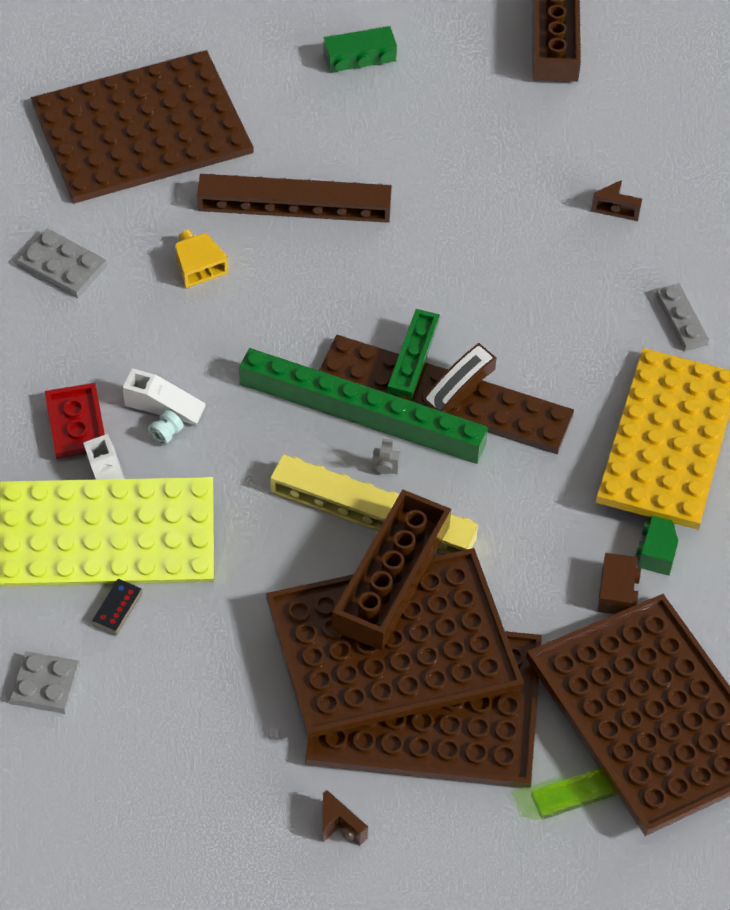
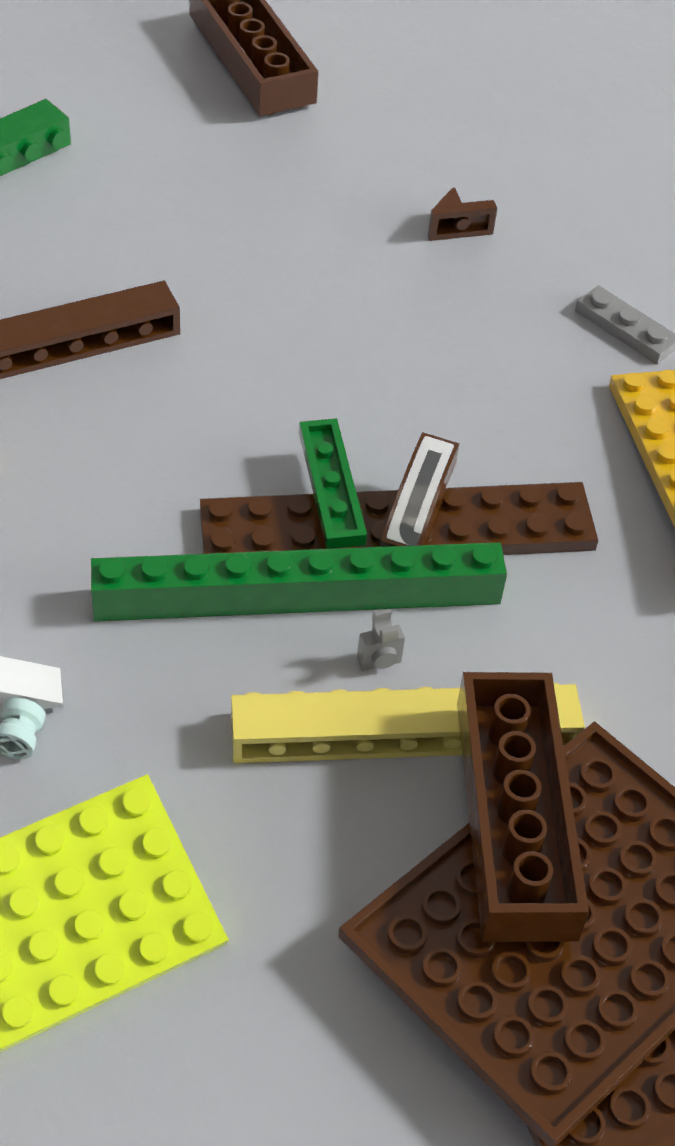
camera: 30 degrees left, 5 degrees down
(117, 607) = (91, 1063): black tile -> none

